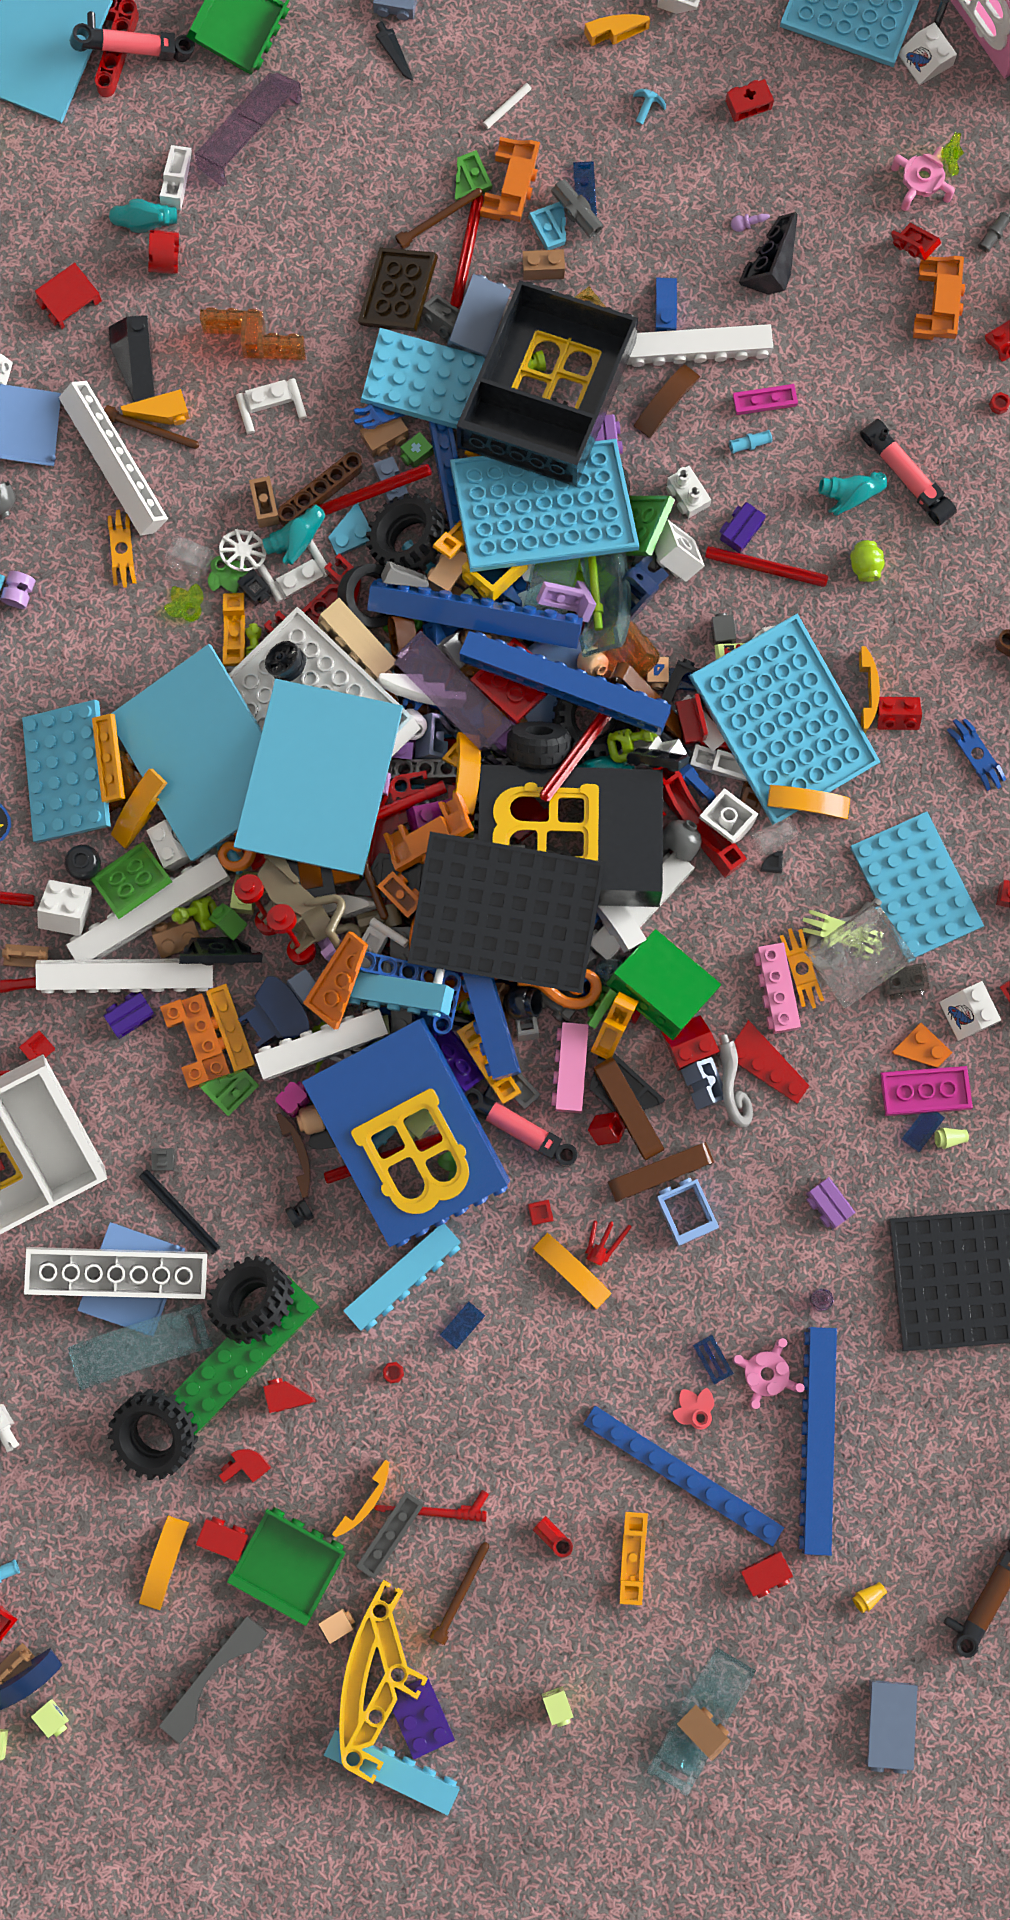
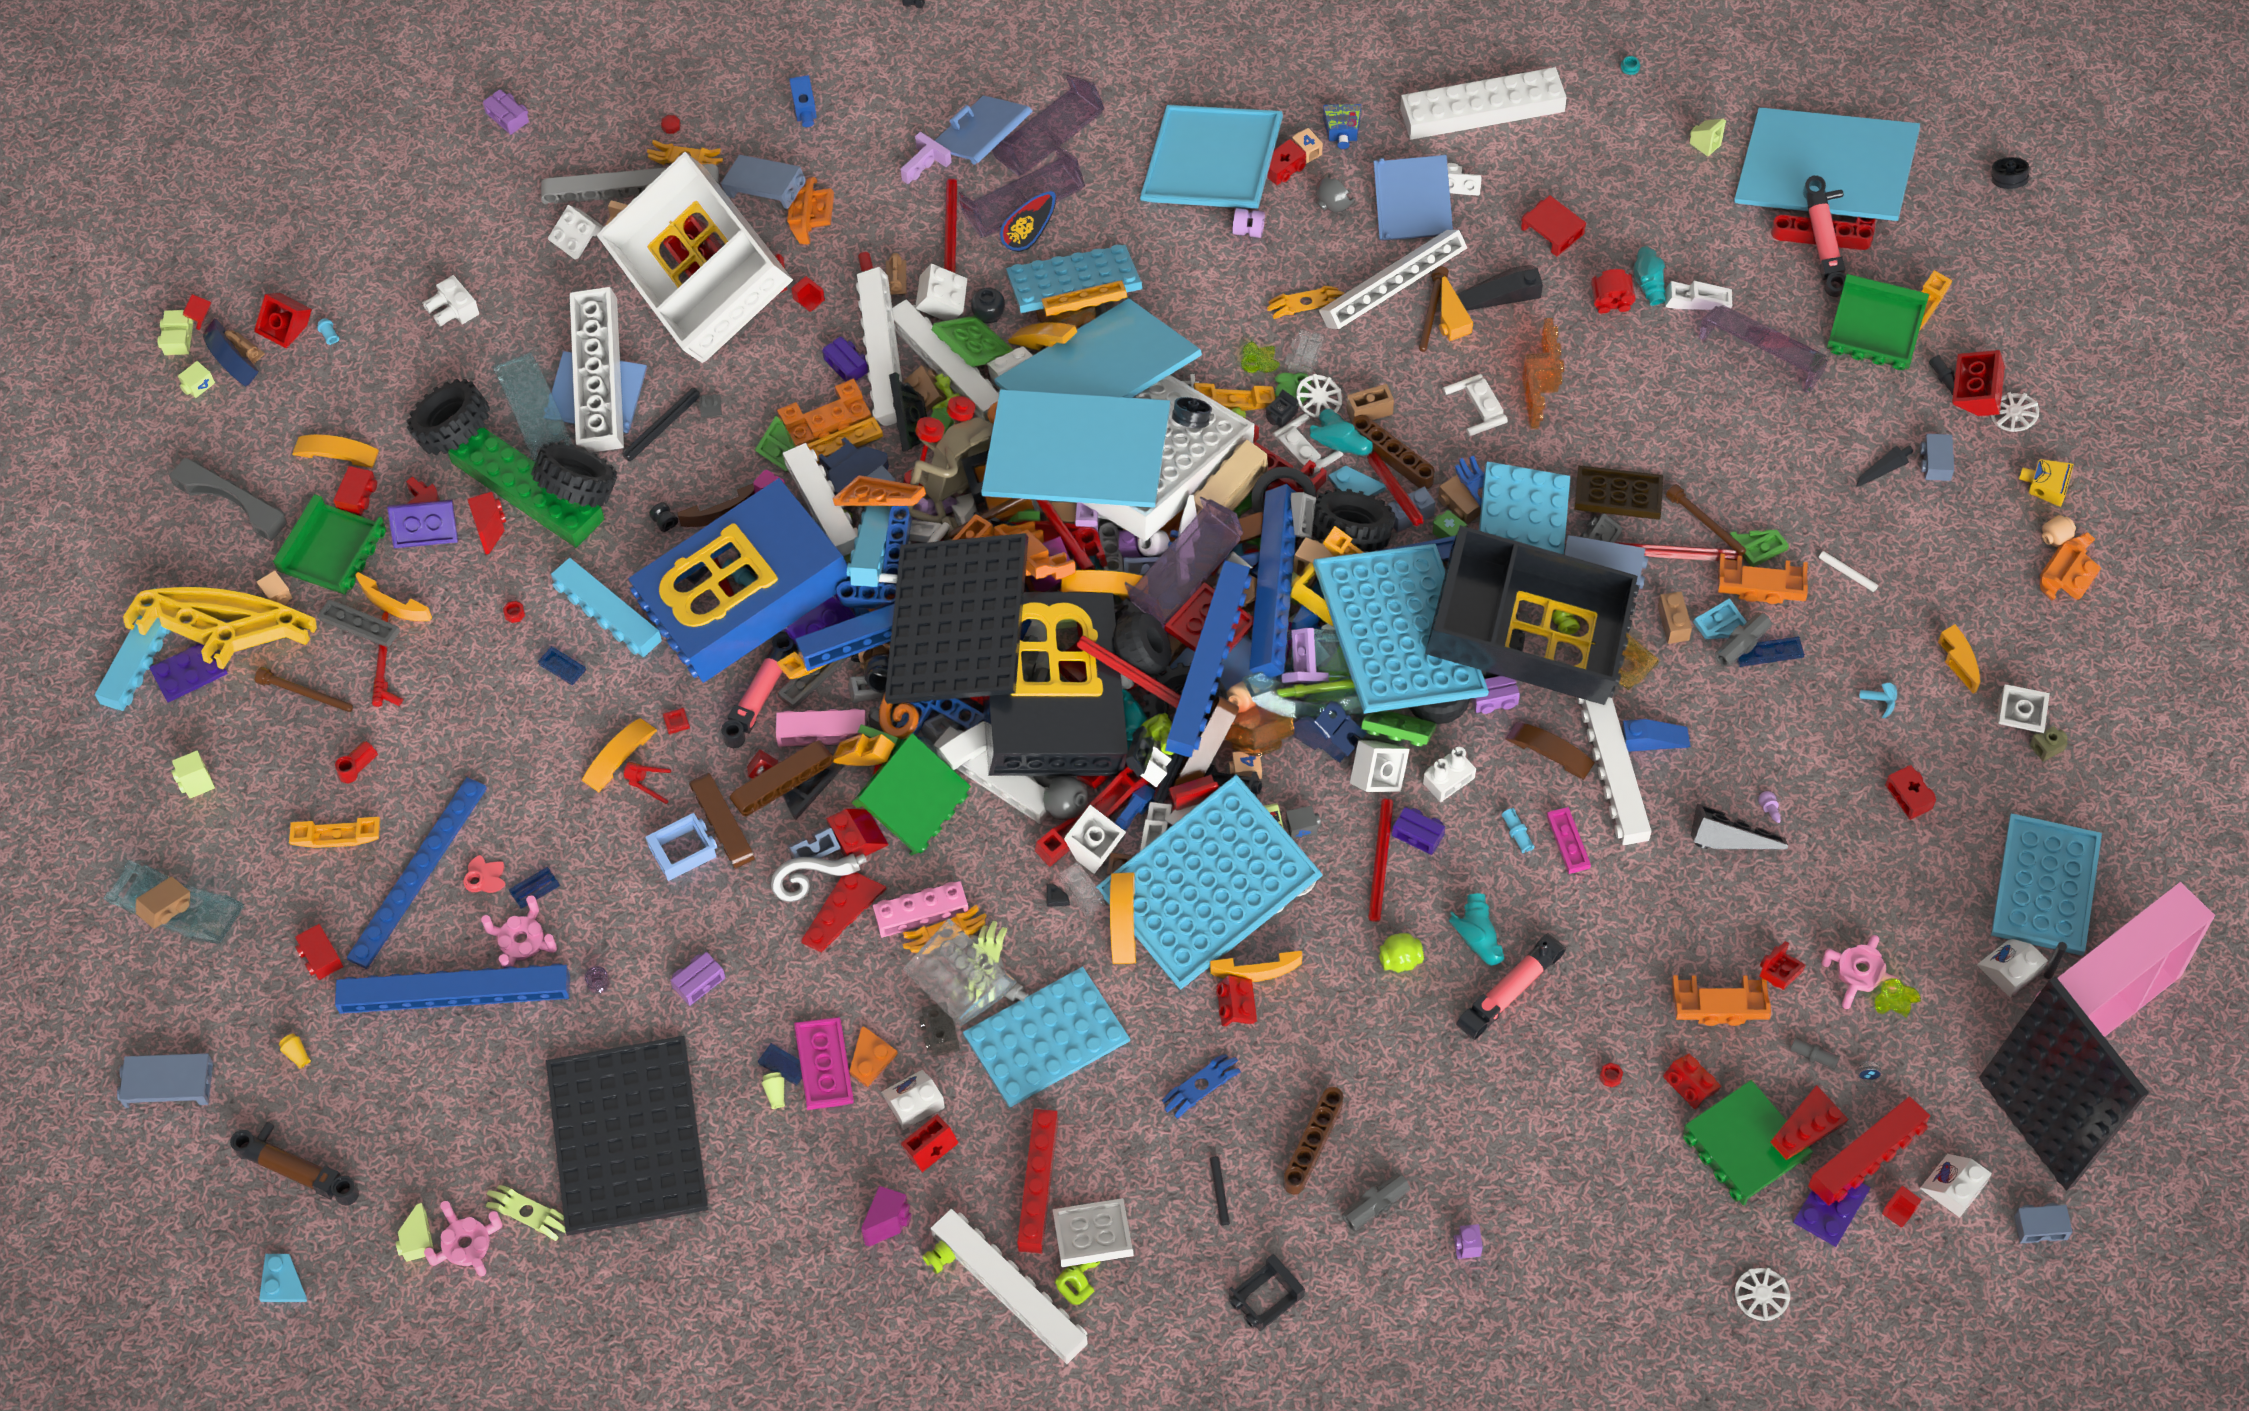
camera: 90 degrees right, 20 degrees down
(278, 1465) = (423, 523): none -> dark purple tile

